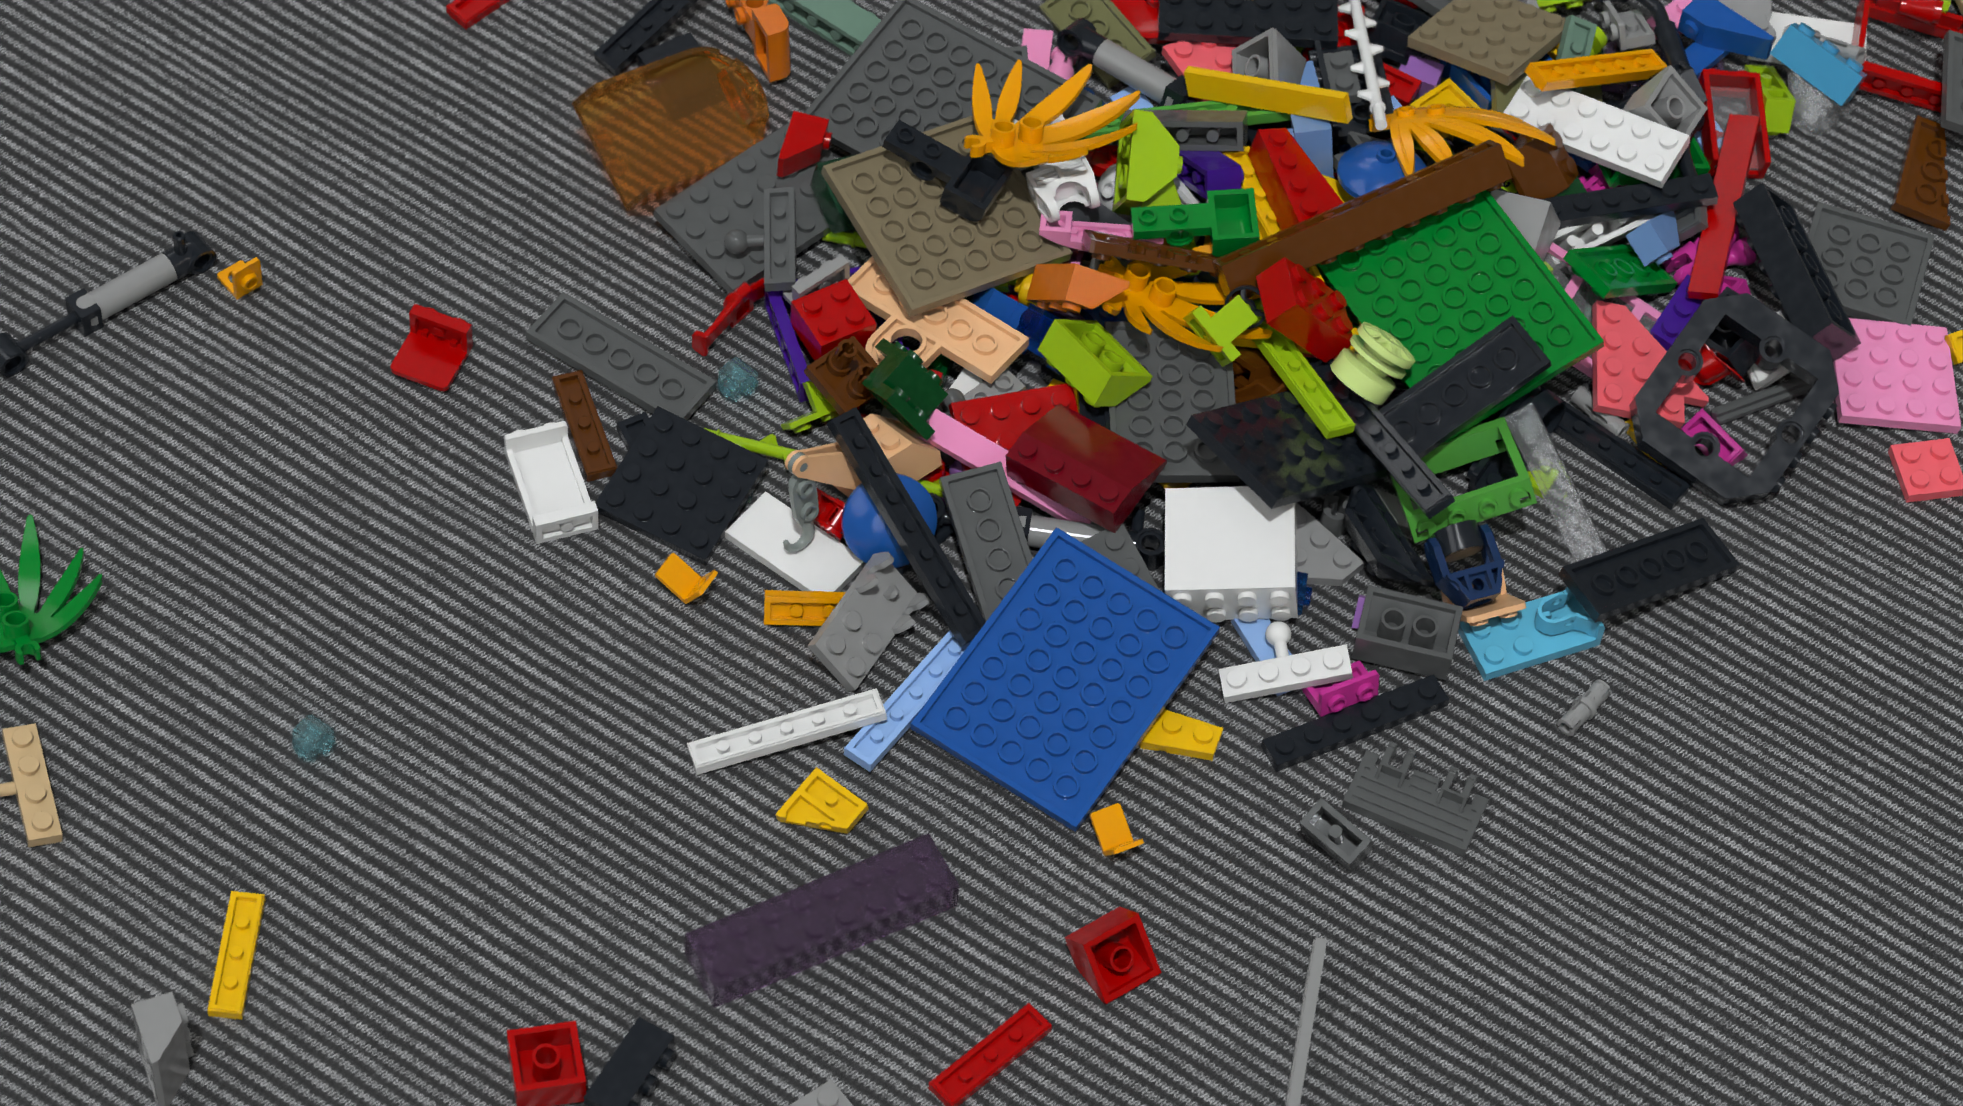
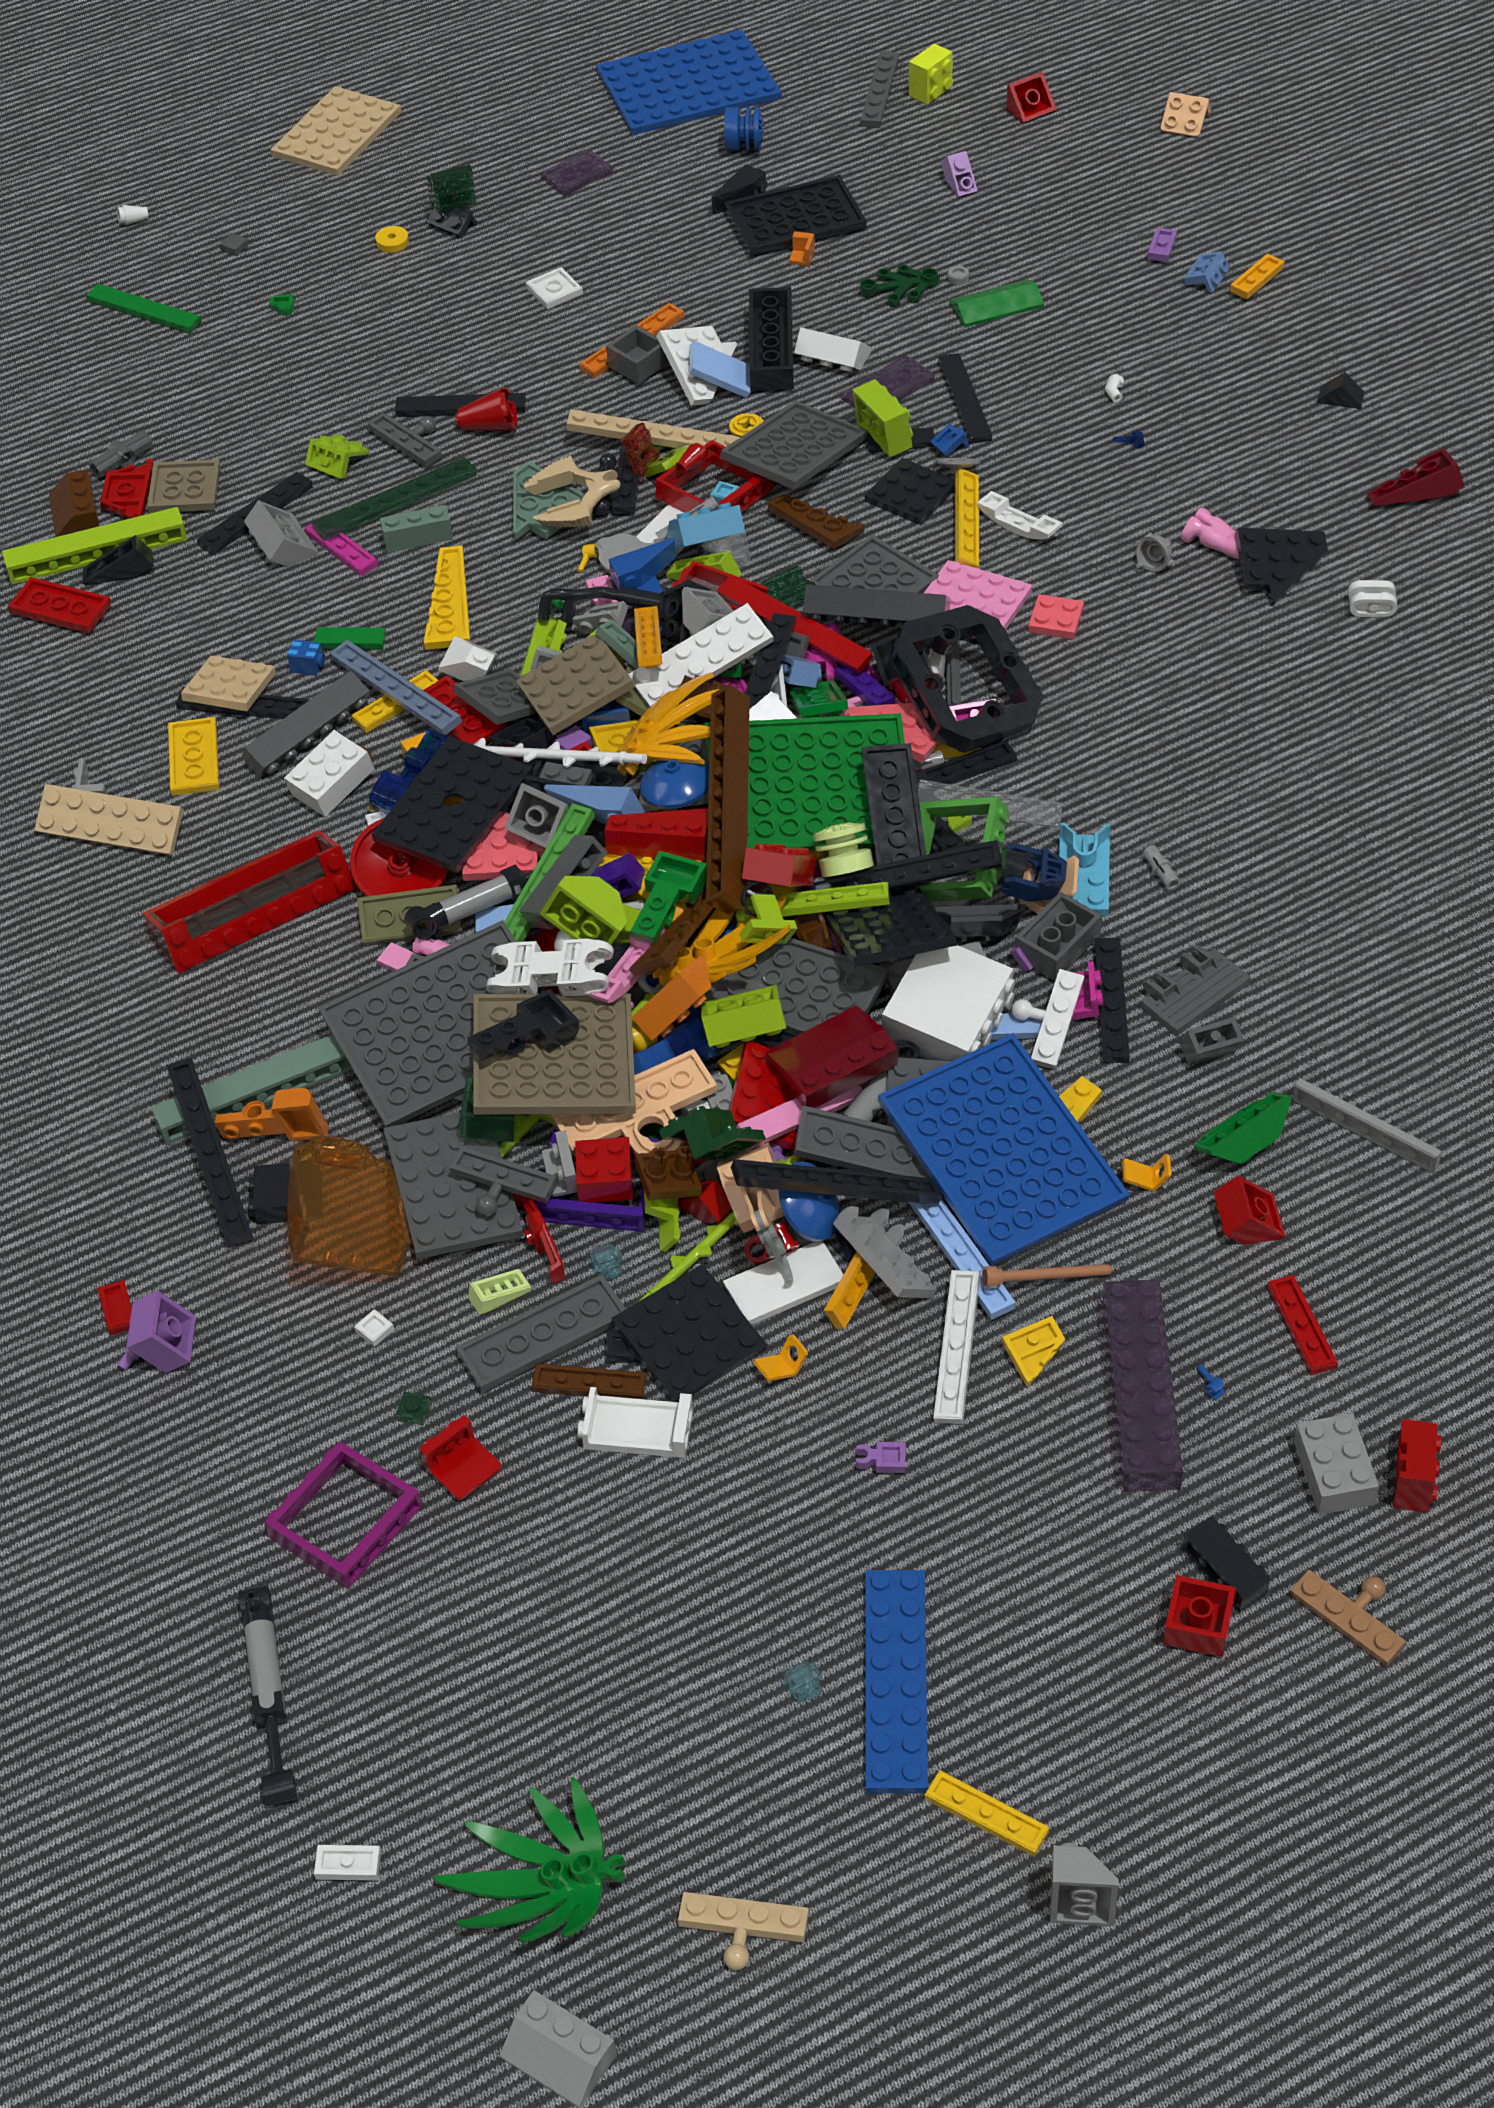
camera: 55 degrees left, 5 degrees down
(245, 277) = (308, 1574): light orange bracket -> none
(318, 320) = (375, 1540): none -> magenta window
(354, 821) = (896, 1682): none -> blue plate
(450, 42) = (159, 1333): none -> medium lavender piece
(479, 290) = (413, 1408): none -> clear green plate
(559, 219) = (374, 1328): none -> white tile
(615, 718) = (888, 1457): none -> medium lavender plate
(655, 290) = (485, 1301): none -> yellowish green slope
(803, 143) = (418, 1125): red slope -> none
(860, 996) = (1215, 1386): none -> blue hand
(886, 730) = (995, 1276): none -> nougat piece
(1028, 140) = (531, 967): light orange plant -> none
(1218, 909) = (1247, 1129): none -> green wedge
(1268, 94) = (572, 814): yellow tile -> none
(1648, 569) = (1075, 783): black plate -> none
(1795, 183) = (787, 585): none -> clear green bracket
(1916, 66) = (722, 490): none -> medium azure tile

